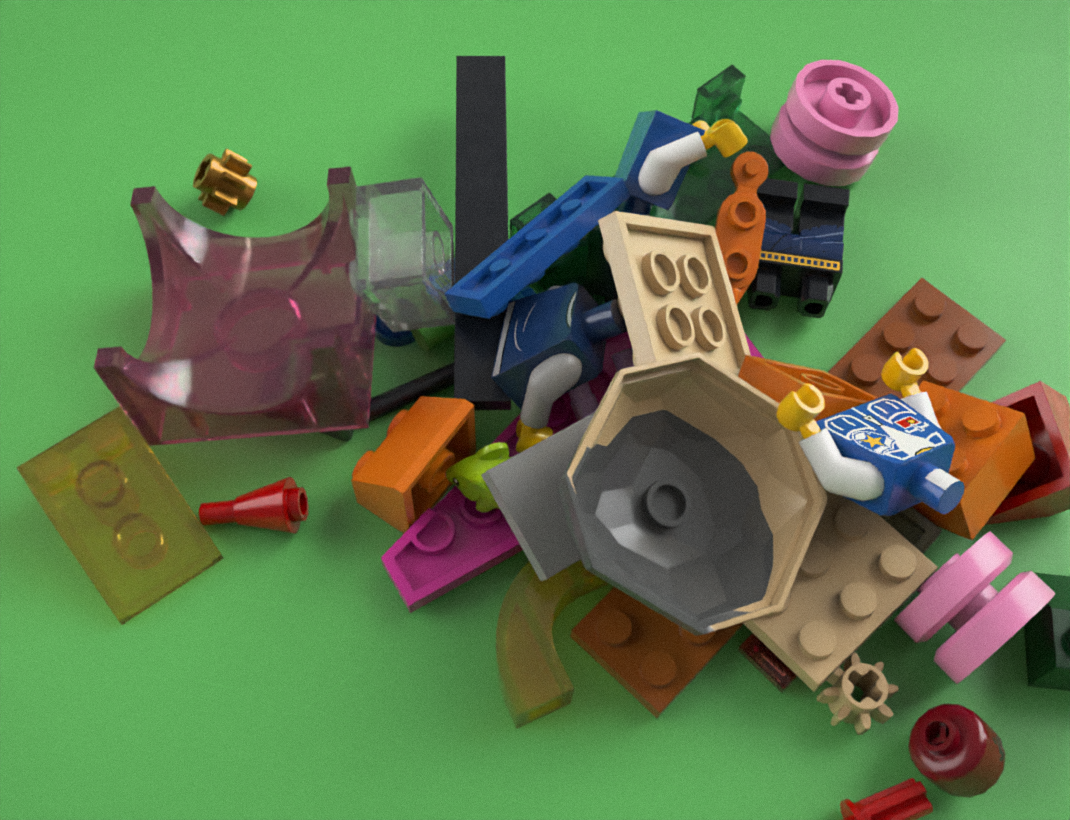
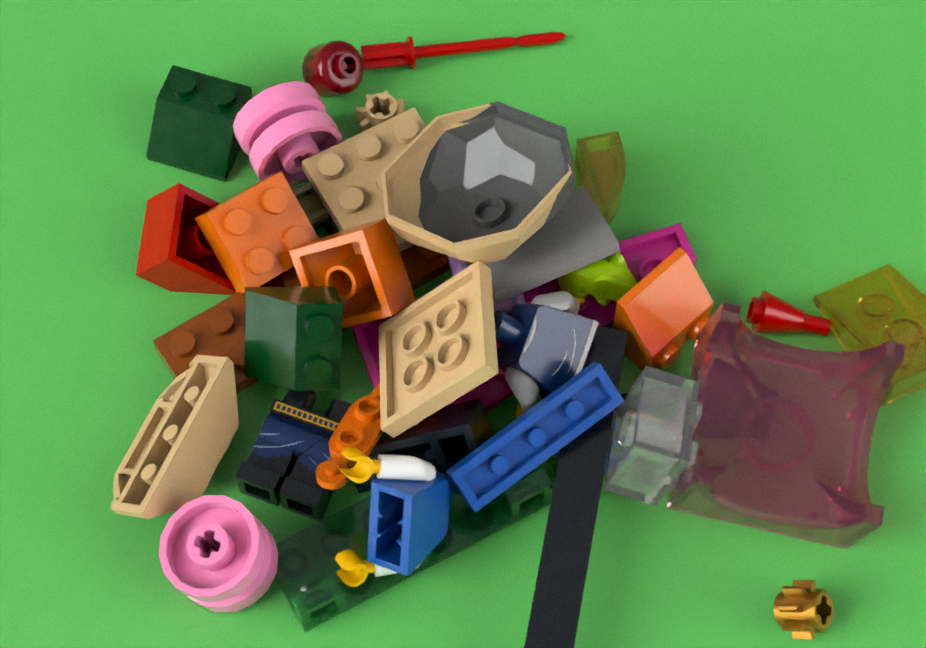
camera: 165 degrees left, 0 degrees up
(841, 330) = (293, 336): none -> dark green slope
(882, 450) = (327, 196): torso -> none
(924, 213) = (179, 441): none -> tan wedge

